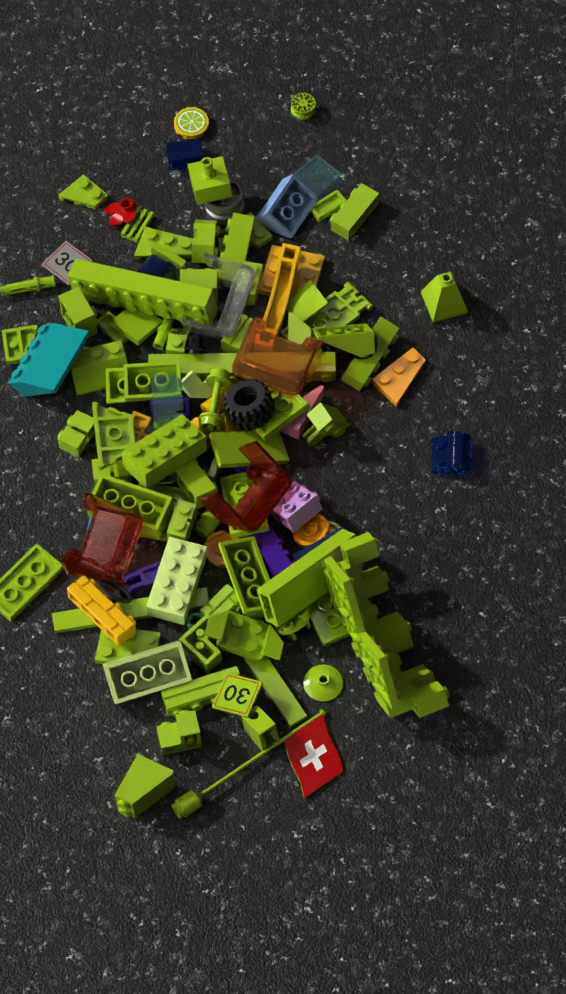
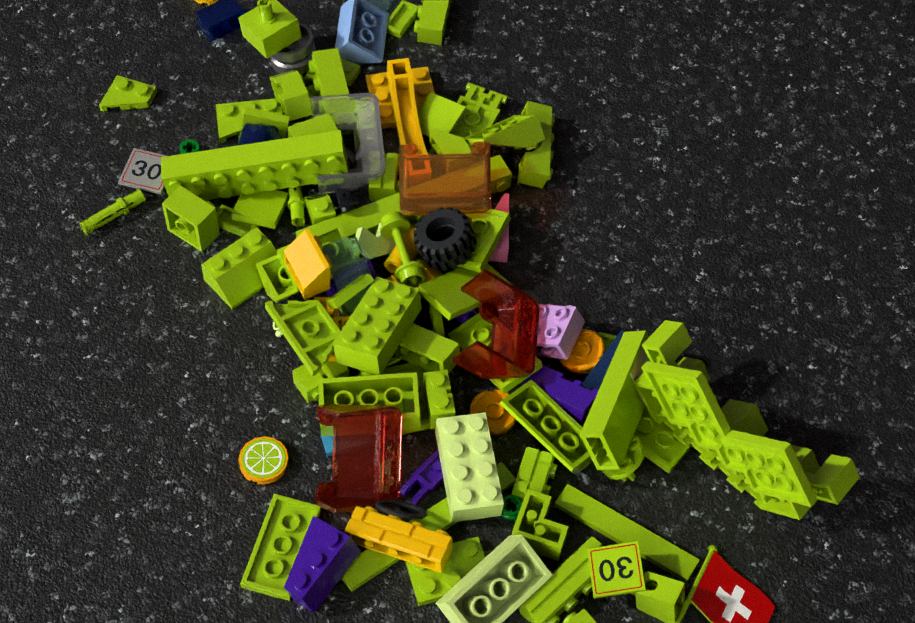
camera: 30 degrees left, 5 degrees down
(17, 342) = (133, 277): lime wing -> none
(39, 605) = (320, 564): none -> dark purple wedge
(42, 516) = (263, 460): none -> tile
(48, 359) = (184, 279): teal slope -> none
(76, 434) = (257, 349): lime piece -> none
(104, 253) = (189, 143): none -> green bush
(121, 212) = (180, 98): red plate -> none
(136, 386) = (308, 264): none -> yellow slope
(143, 213) = (206, 92): lime tile -> none
(158, 416) = (349, 291): none -> lime tile
(206, 524) = (463, 388): lime brick -> none
(244, 636) = (586, 497): lime piece -> none
(323, 691) = (691, 524): lime dish -> none
(326, 421) = (534, 231): lime brick -> none
(398, 376) = (576, 157): light orange wing -> none
(443, 298) = (577, 61): lime slope -> none
(452, 453) = (679, 212): clear blue brick -> none

